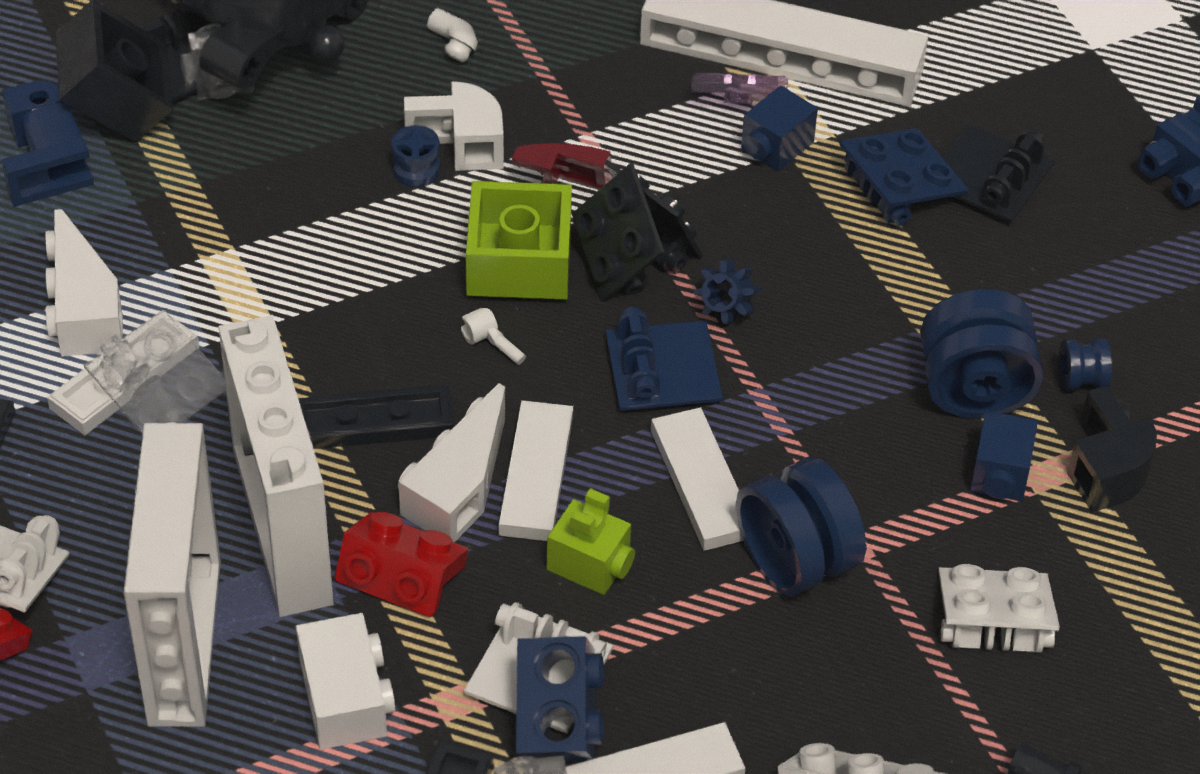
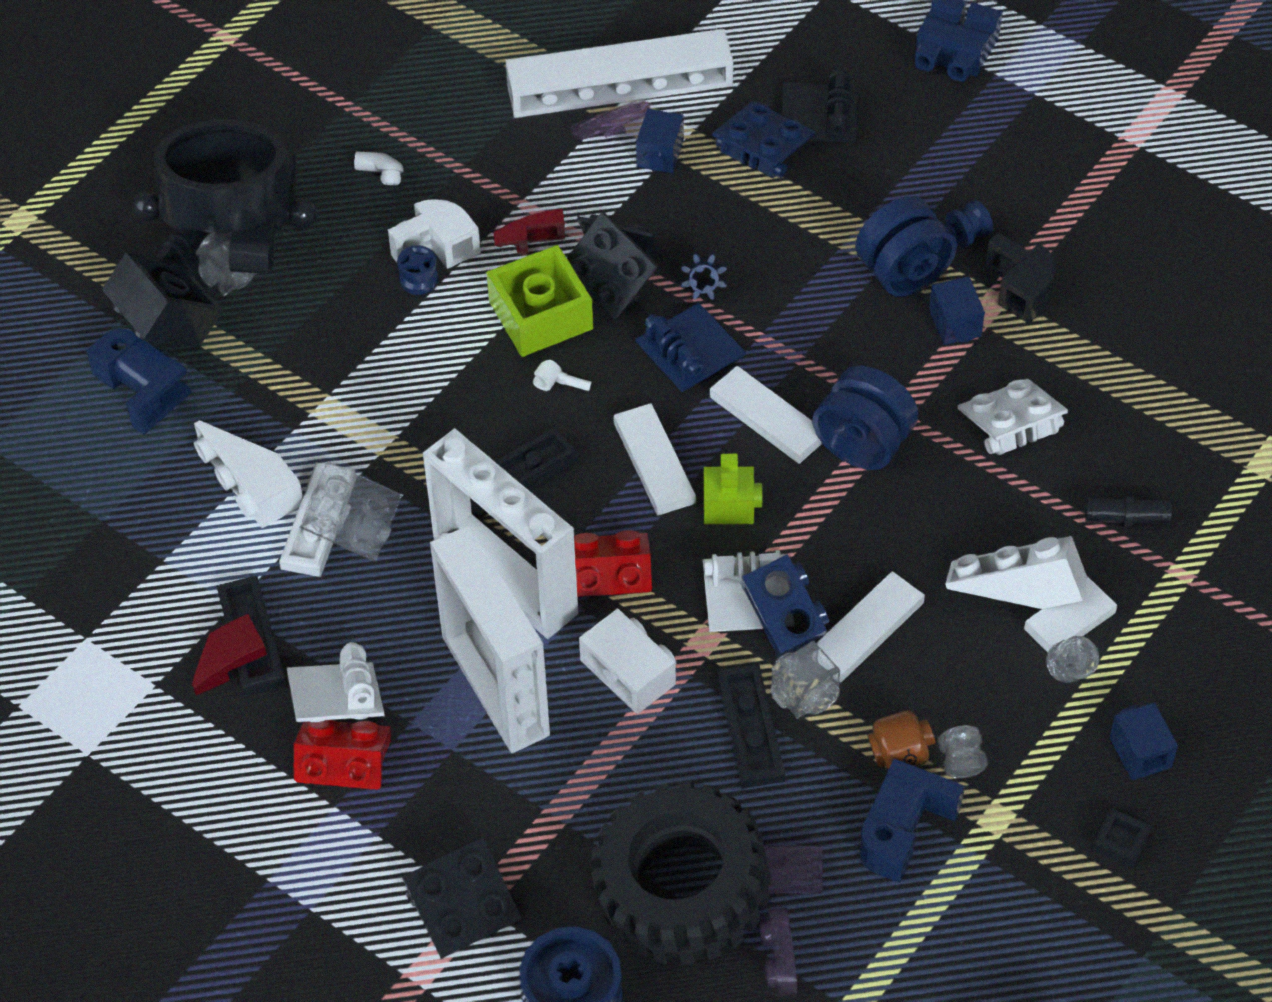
camera: 25 degrees left, 5 degrees up
(454, 478) = (609, 485): white slope -> none

